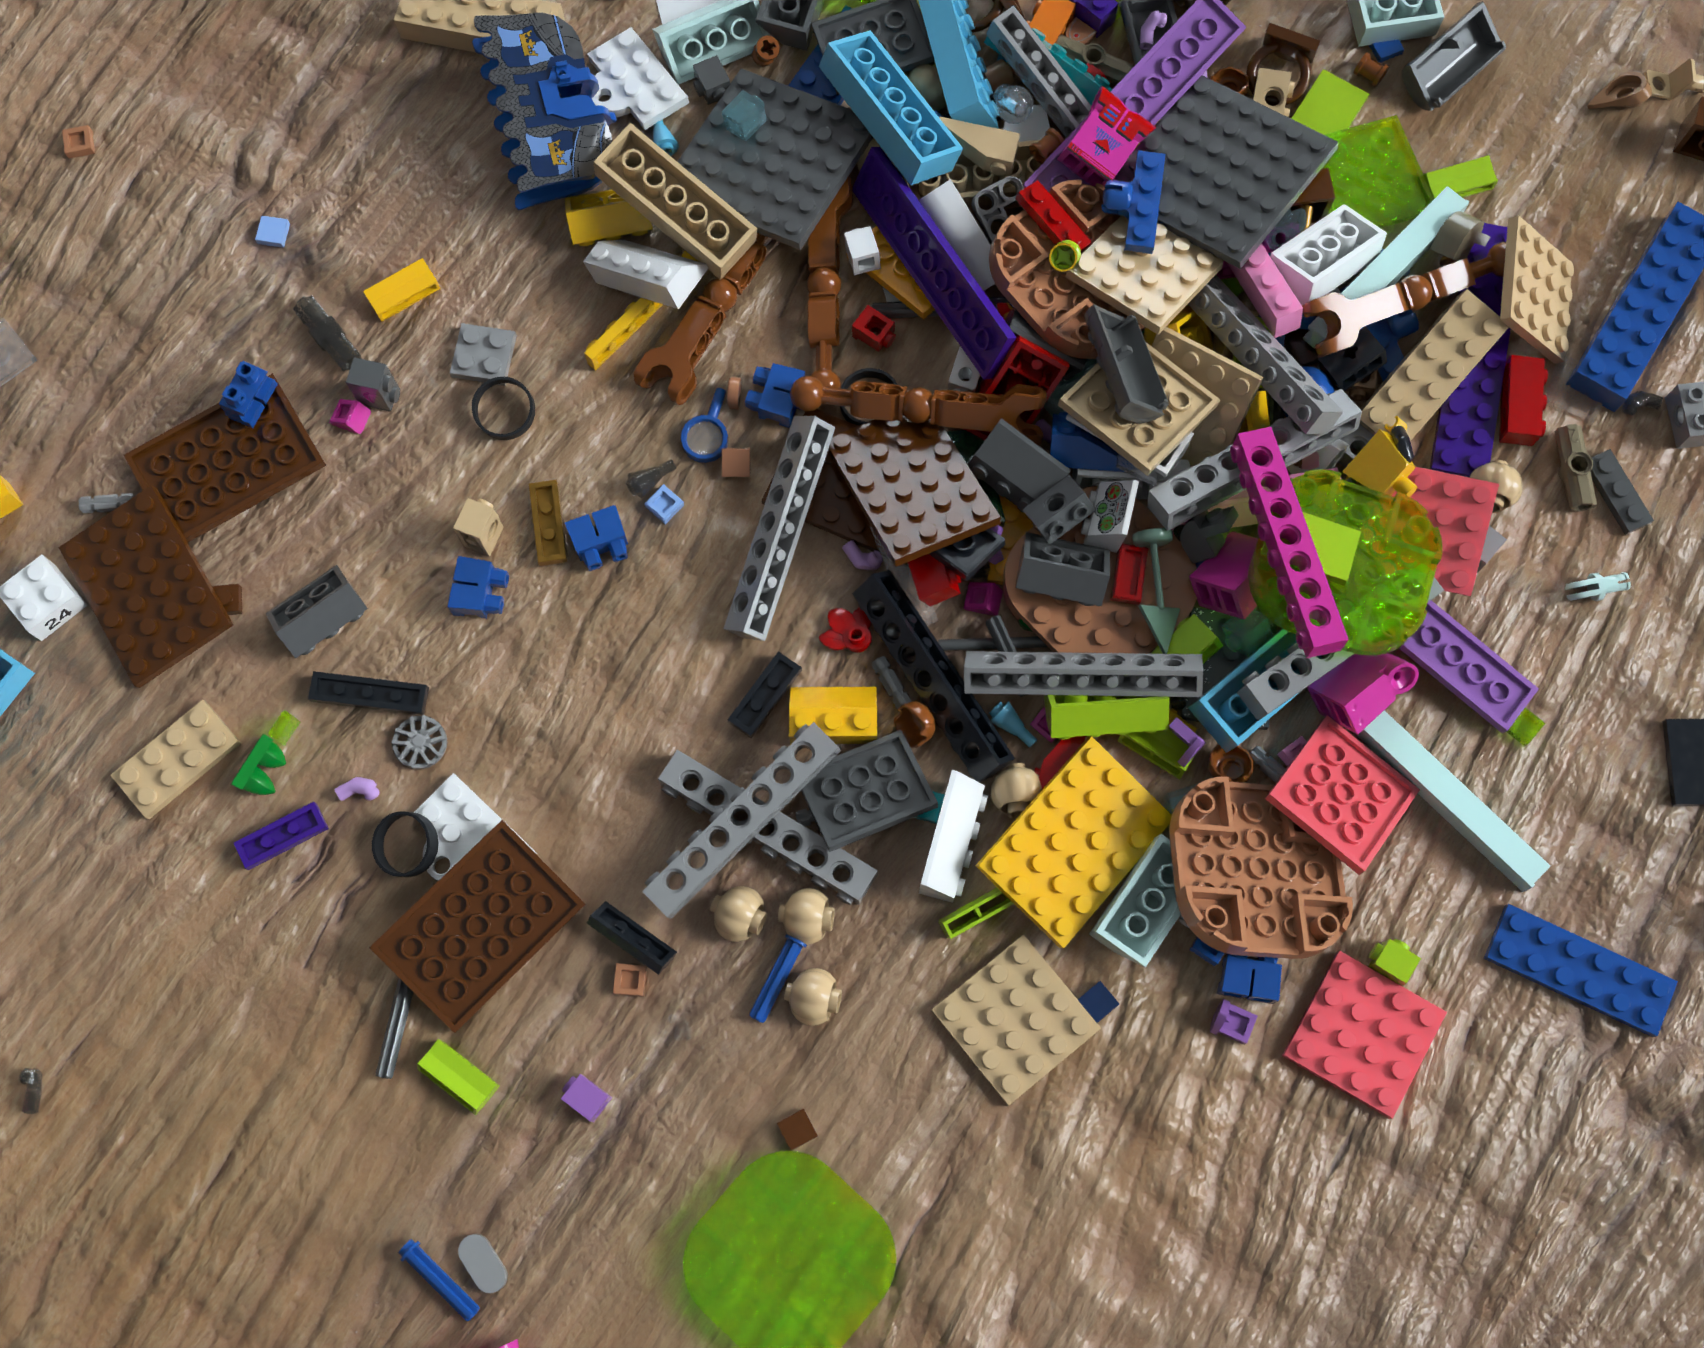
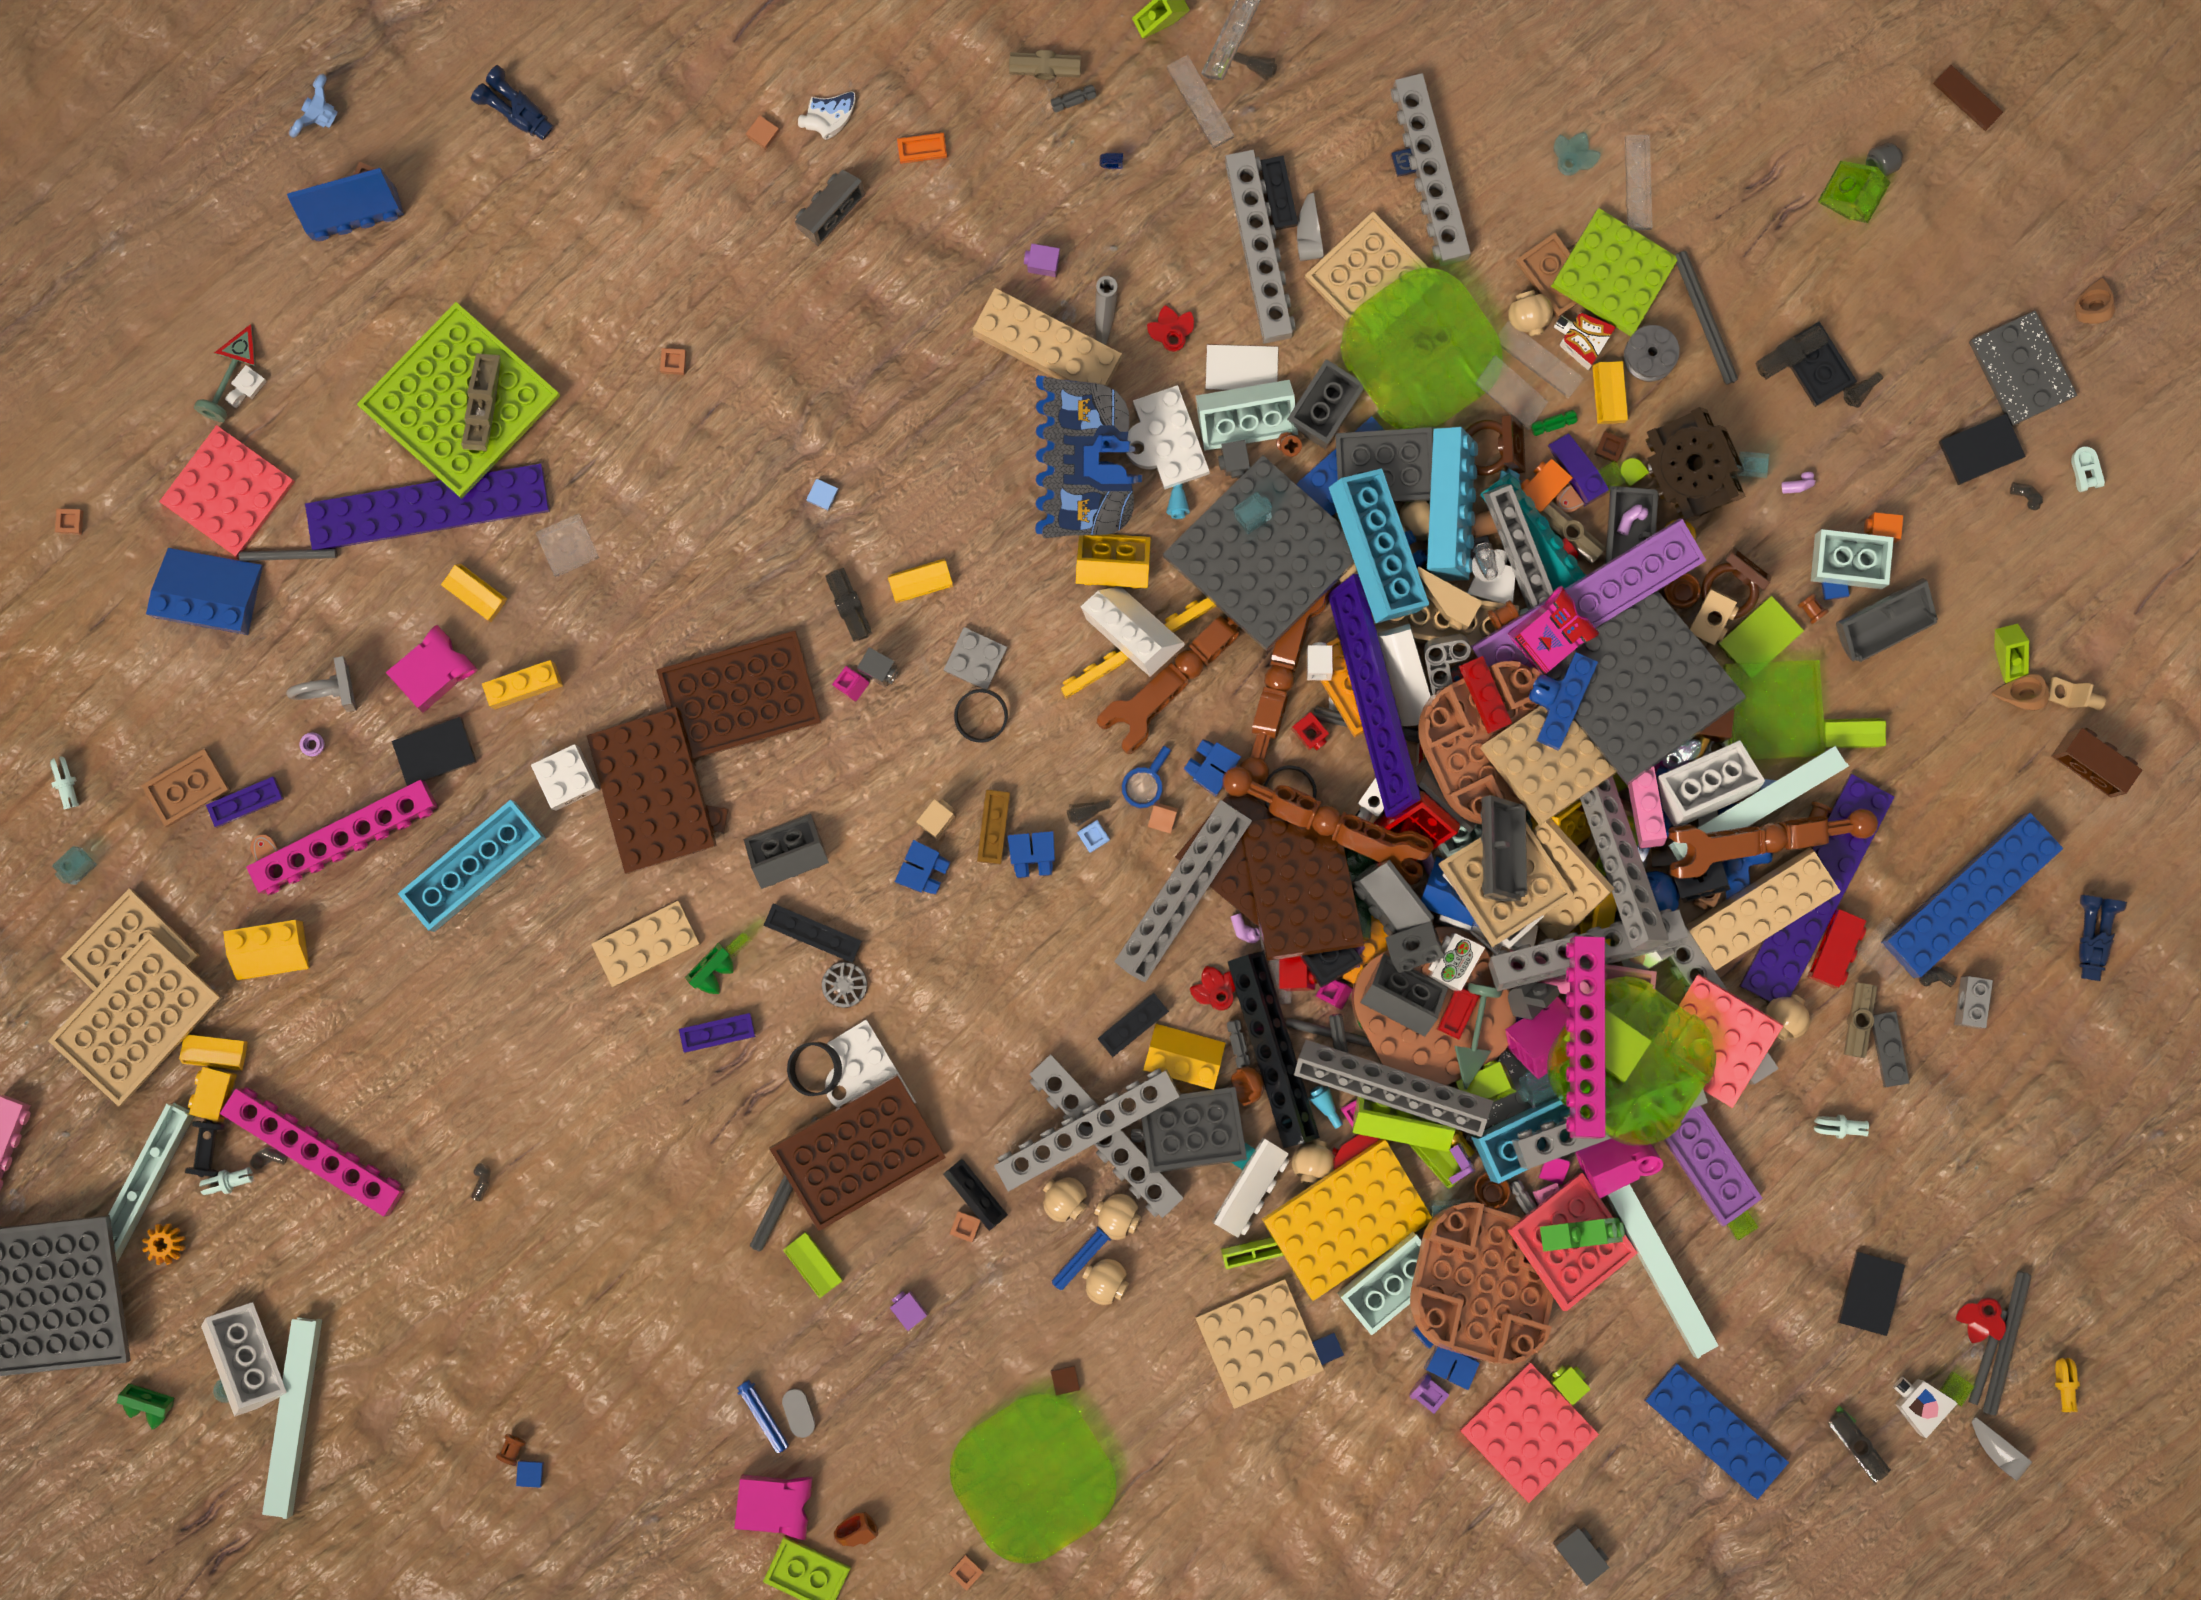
camera: 15 degrees right, 10 degrees up
(102, 503) = (633, 706): light grey axle -> none
(246, 393) = (772, 645): blue hips -> none
(358, 785) = (788, 1008): lavender arm -> none
(675, 201) = (1172, 581): tan brick -> none
(734, 392) = (1177, 754): nougat tile -> none
(1061, 259) = (1480, 739): lime wheel -> none
(1293, 722) = (1554, 1170): none -> dark pink slope
(1360, 774) = (1582, 1234): none -> bright green arch
(1385, 462) = (1694, 982): yellow torso -> none
(1459, 235) = (1829, 794): dark tan brick -> none
(1475, 1162) = (1581, 1555): none -> dark grey brick
(1536, 290) = (1878, 861): tan plate -> none
(1594, 56) = (2012, 652): none -> lime slope

